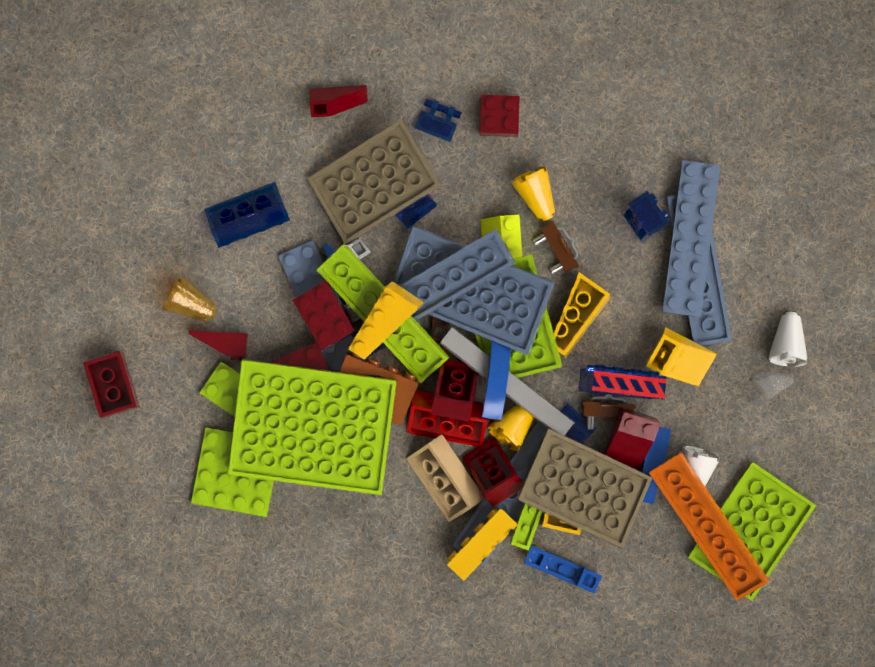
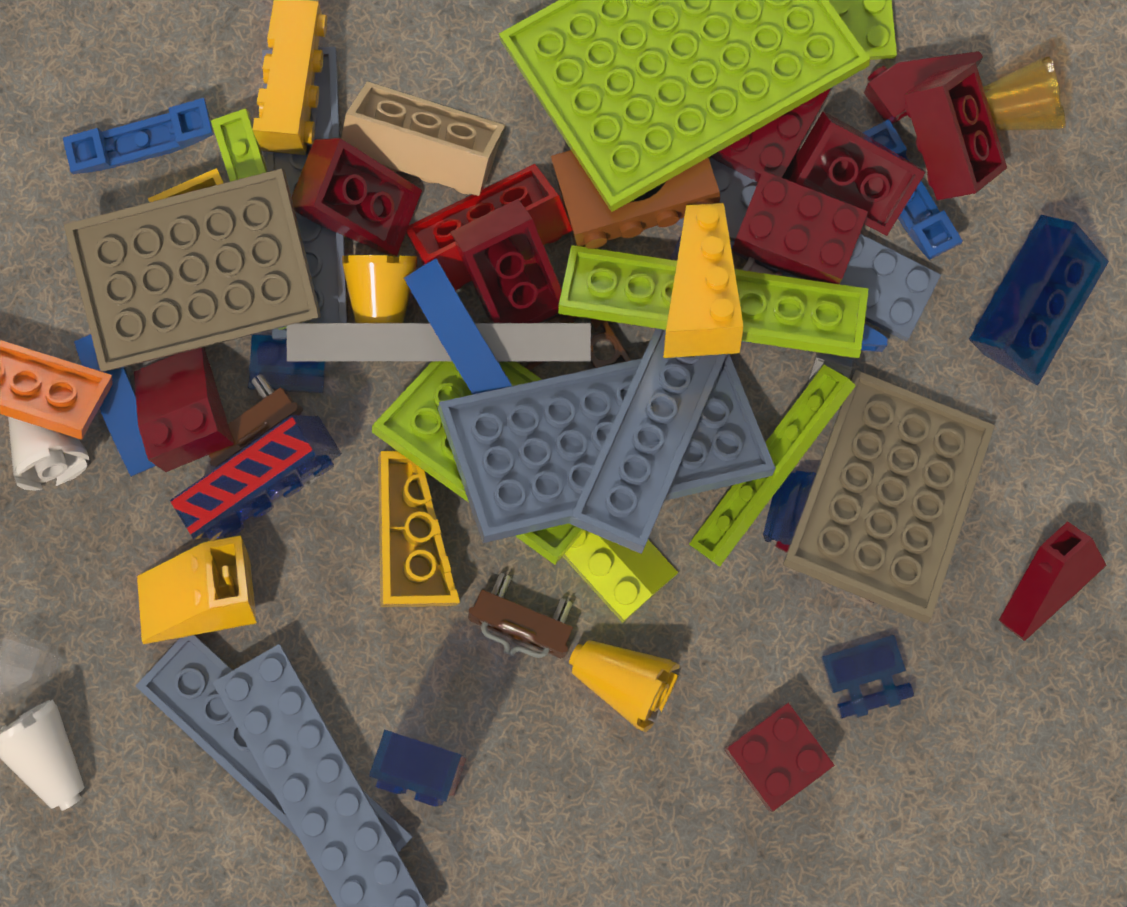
camera: 140 degrees right, 5 degrees down
(229, 305) = (955, 132): none -> dark red brick
(264, 300) = (921, 218): none -> blue slope
(281, 323) = (855, 171): none -> dark red slope
(400, 233) = (786, 448): none -> lime plate

